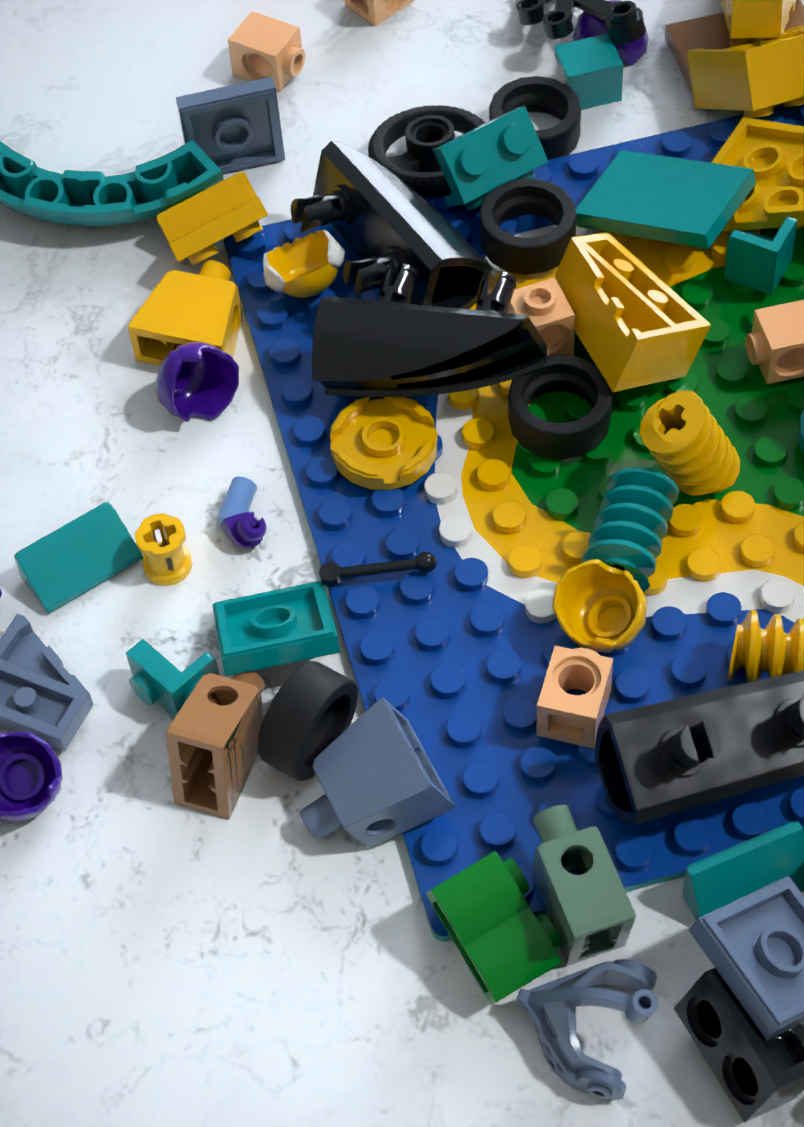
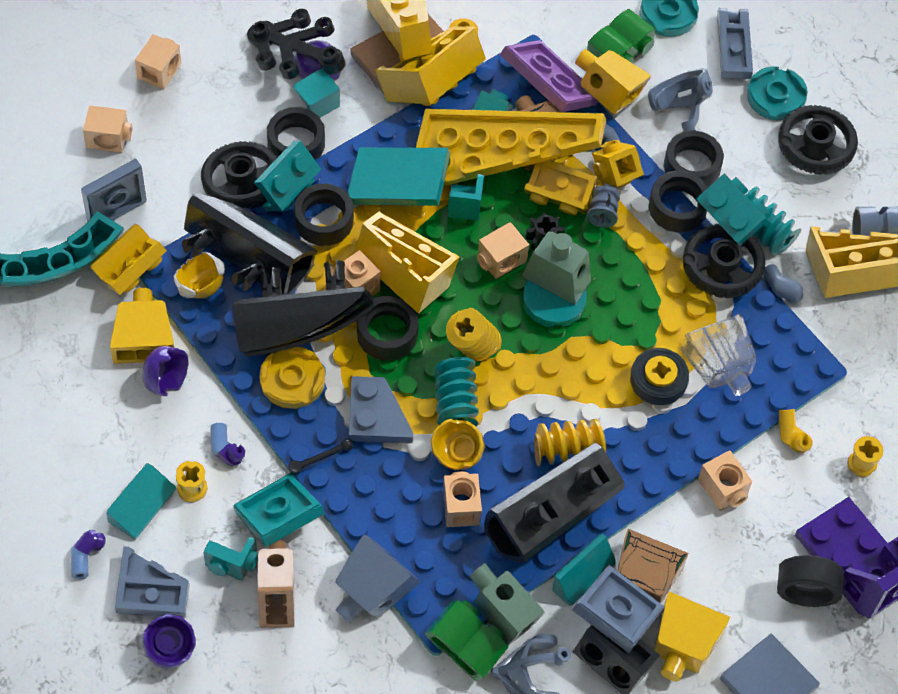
camera: 30 degrees left, 5 degrees up
(306, 718) = (322, 558): black tyre -> none
(490, 528) = (376, 413): none -> sand blue wing

